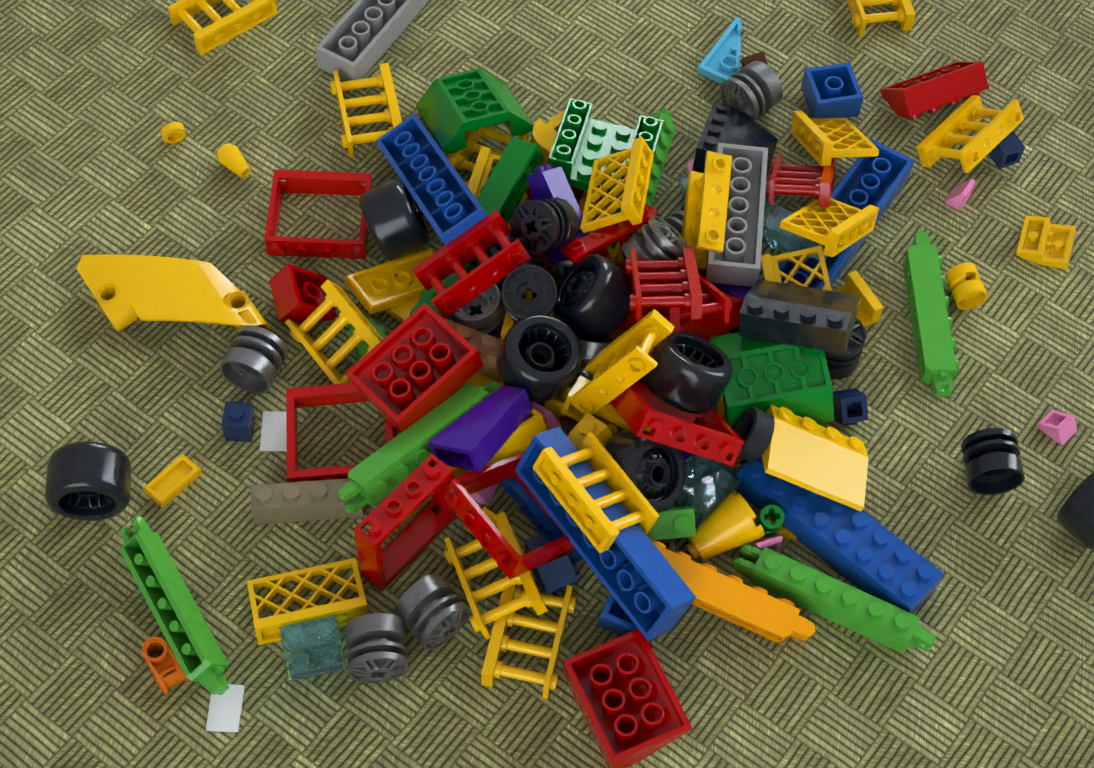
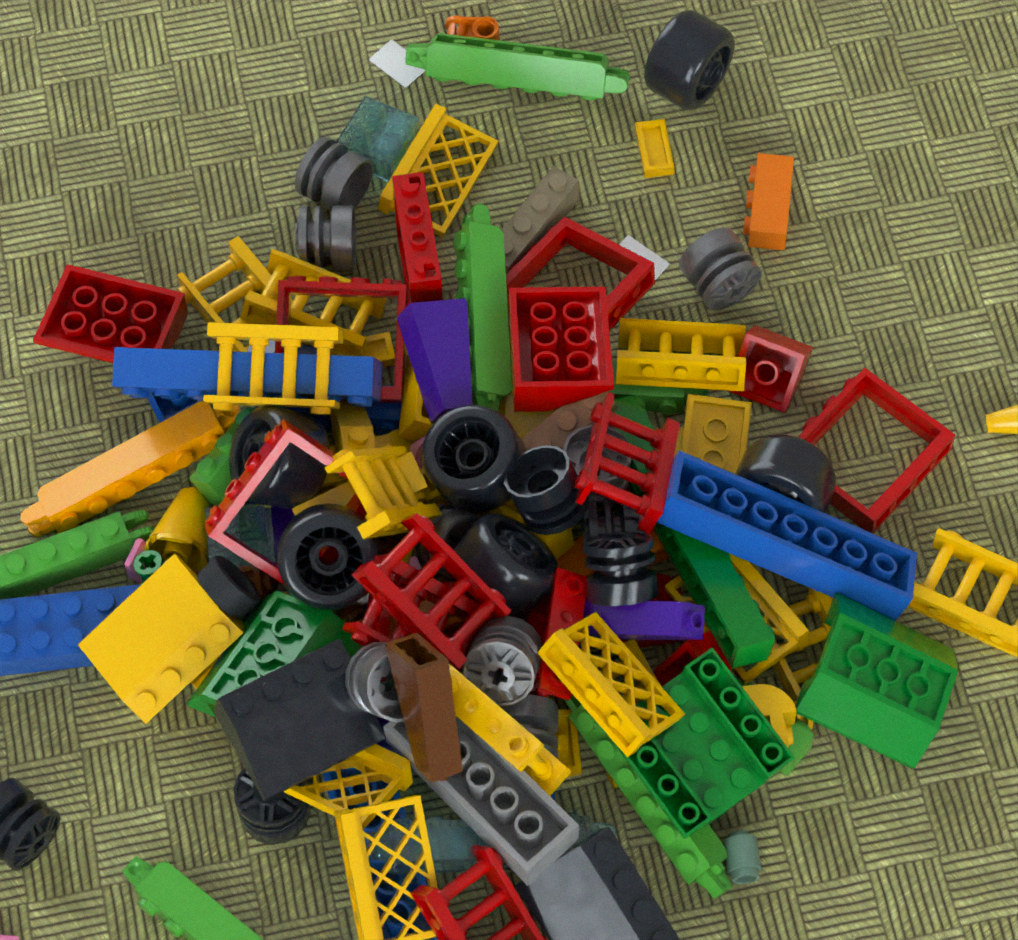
camera: 135 degrees right, 5 degrees up
(165, 291) = (860, 252): yellow panel -> none
(167, 377) = (769, 201): none -> orange brick
(238, 421) = (666, 225): dark blue brick -> none
(631, 116) = (743, 857): none -> sand green brick
(740, 264) = (364, 683): none -> flat silver wheel
(741, 219) = (426, 705): none -> reddish brown slope
(850, 406) = (198, 753): dark blue brick -> none
(870, 307) = (309, 884): yellow panel -> none

